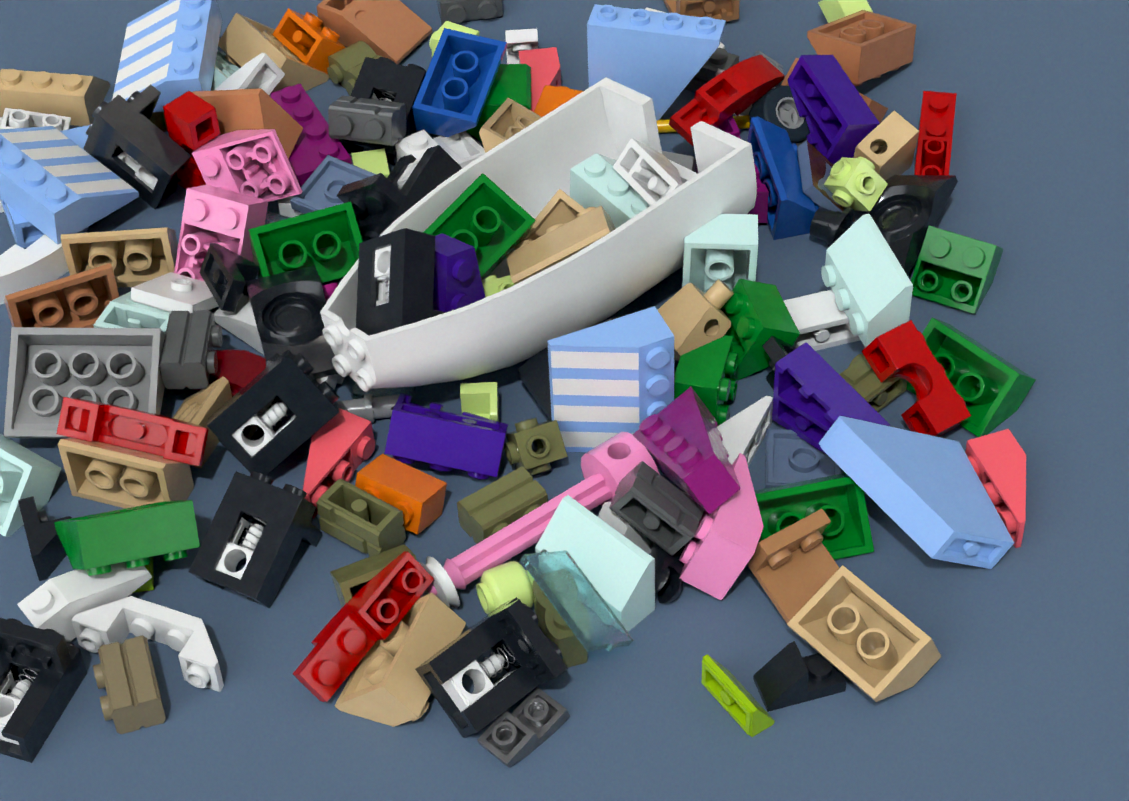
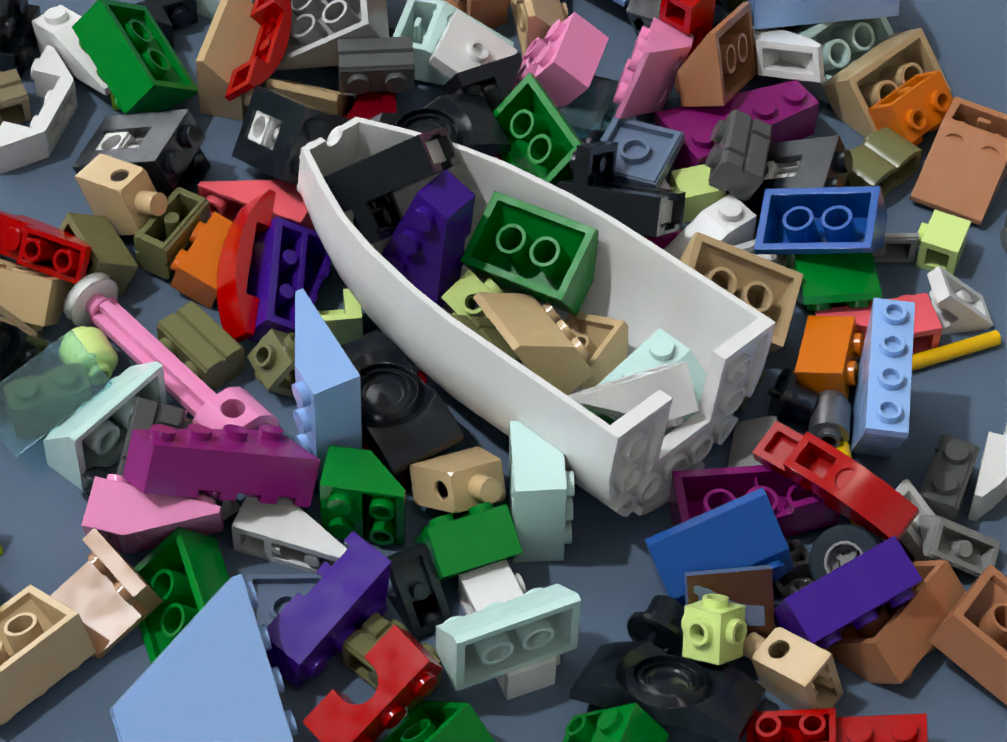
camera: 80 degrees right, 5 degrees up
(319, 544) = (120, 193): none -> tan torso
(426, 454) = (235, 306): none -> red slope
(566, 72) = (955, 349): none -> yellow bar

